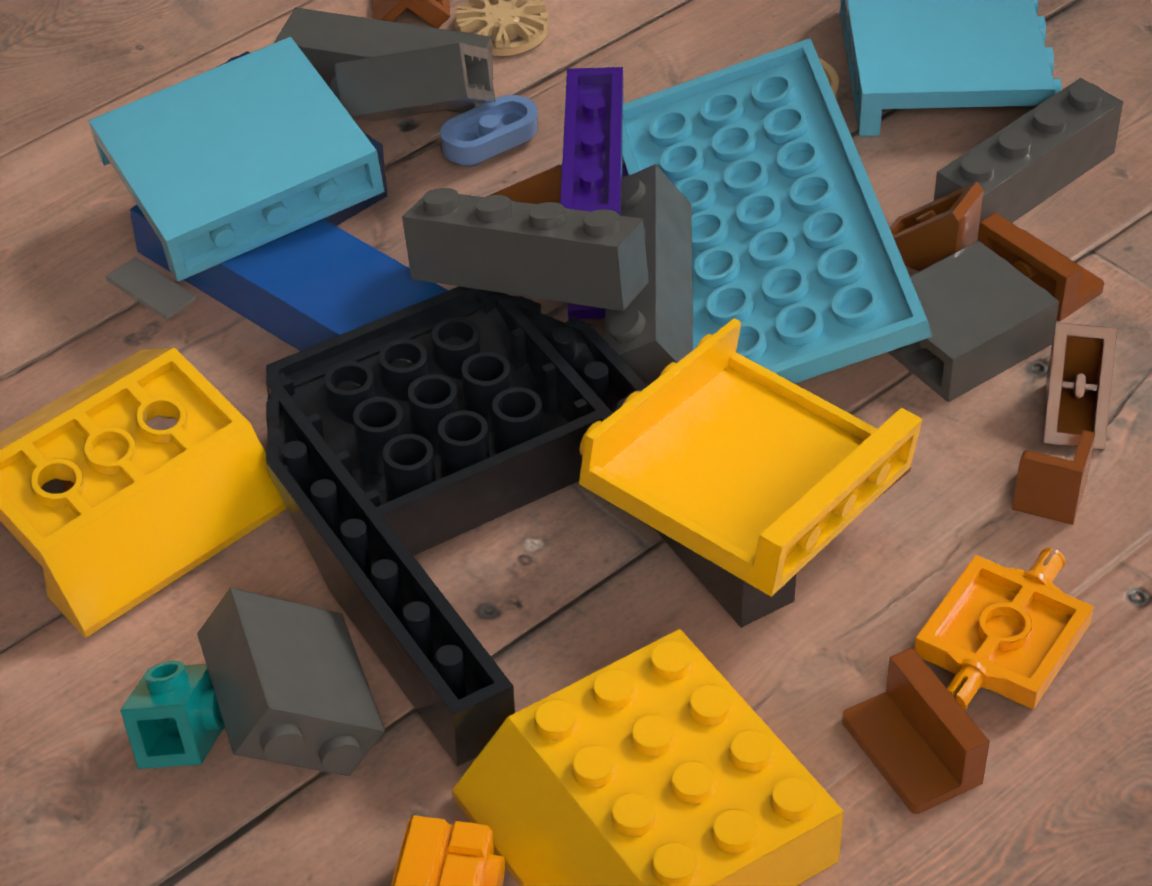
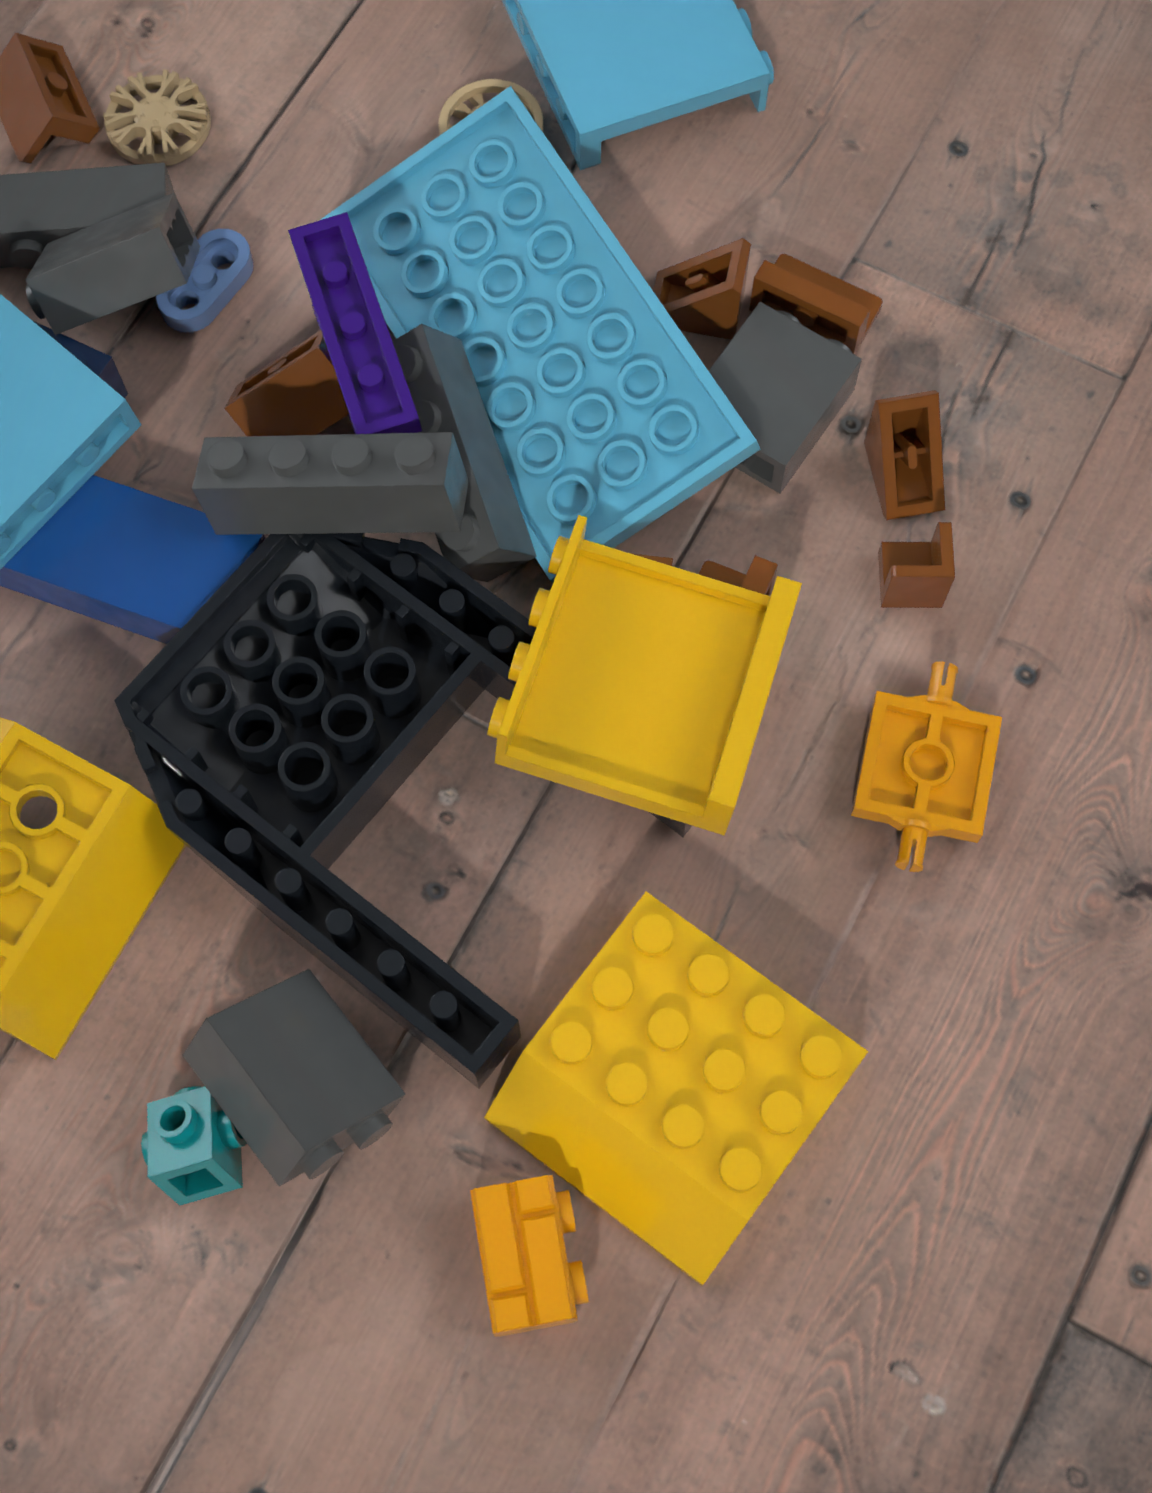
camera: 20 degrees left, 25 degrees up
(919, 736) = (886, 913): dark orange panel -> none
(1038, 151) = (771, 160): dark grey brick -> none

